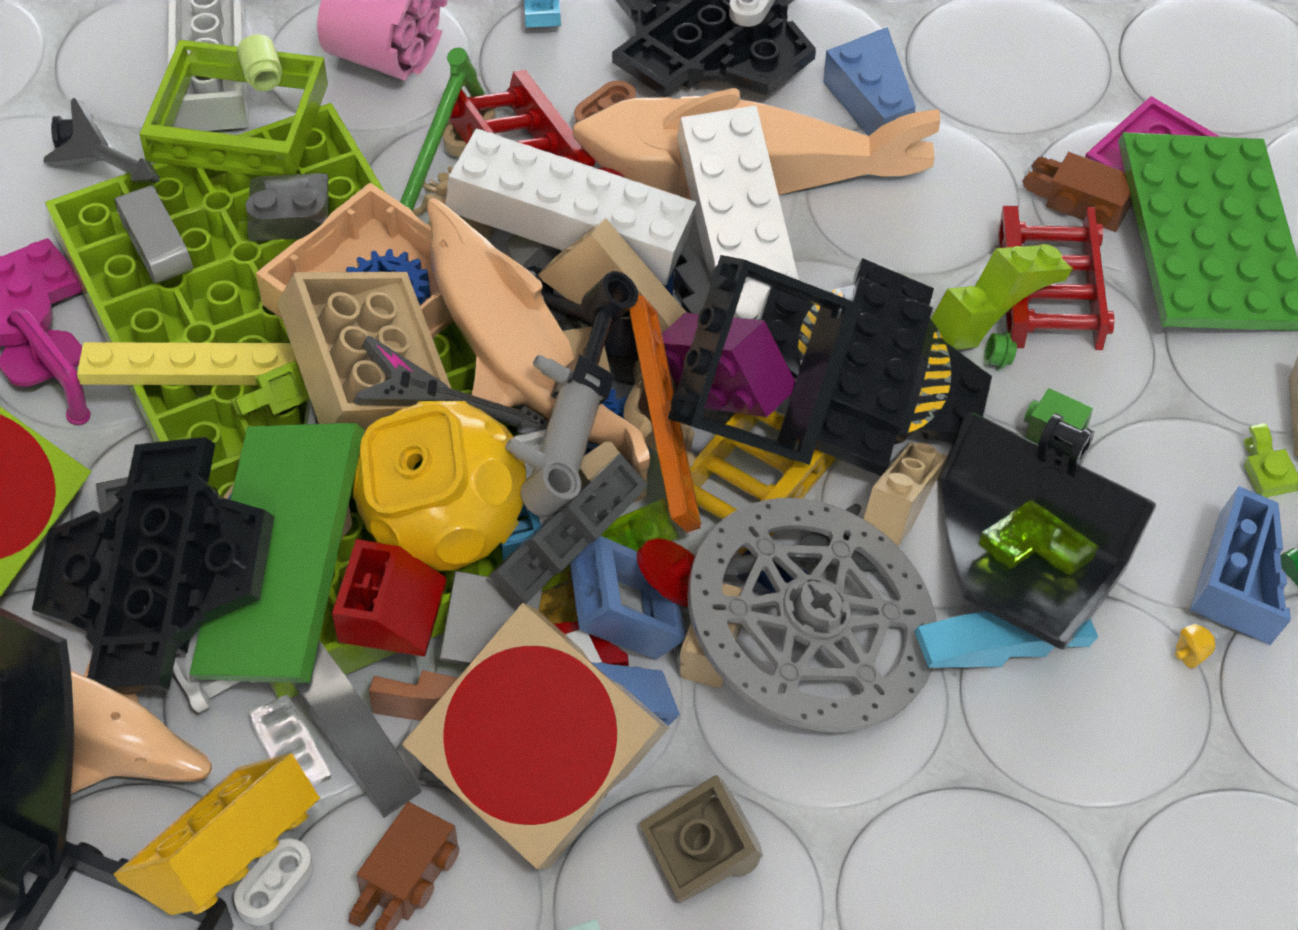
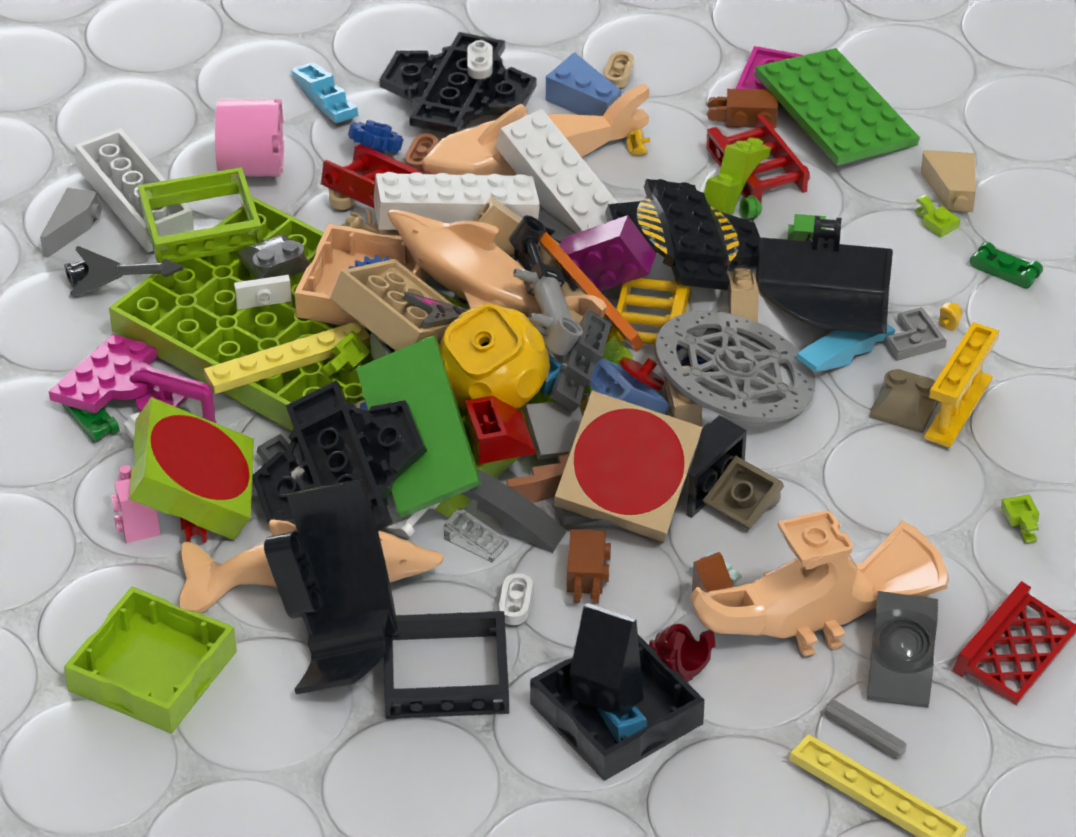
camera: 25 degrees left, 10 degrees down
(109, 54) = (70, 219): none -> light grey slope
(153, 234) = (201, 298): light grey beam -> none
(220, 836) = (476, 579): yellow slope -> none
(231, 251) = (262, 292): none -> white plate
(259, 62) = (207, 179): yellowish green brick -> none
(462, 74) = (333, 159): bright green bar -> none
(555, 65) = (376, 136): none -> blue gear
(676, 763) = (715, 451): none -> black slope
(817, 372) = (667, 235): black window -> none
(903, 190) = (636, 142): none -> yellow piece
(943, 70) = (619, 68): none -> tan plate
(1037, 530) = (828, 289): clear neon green plate -> none
(1046, 769) = (905, 400): none -> dark tan slope
(1129, 788) = (961, 384): none -> yellow fence
(1133, 663) = (919, 336): none -> light grey tile
(1243, 569) = (955, 270): medium blue wedge -> none

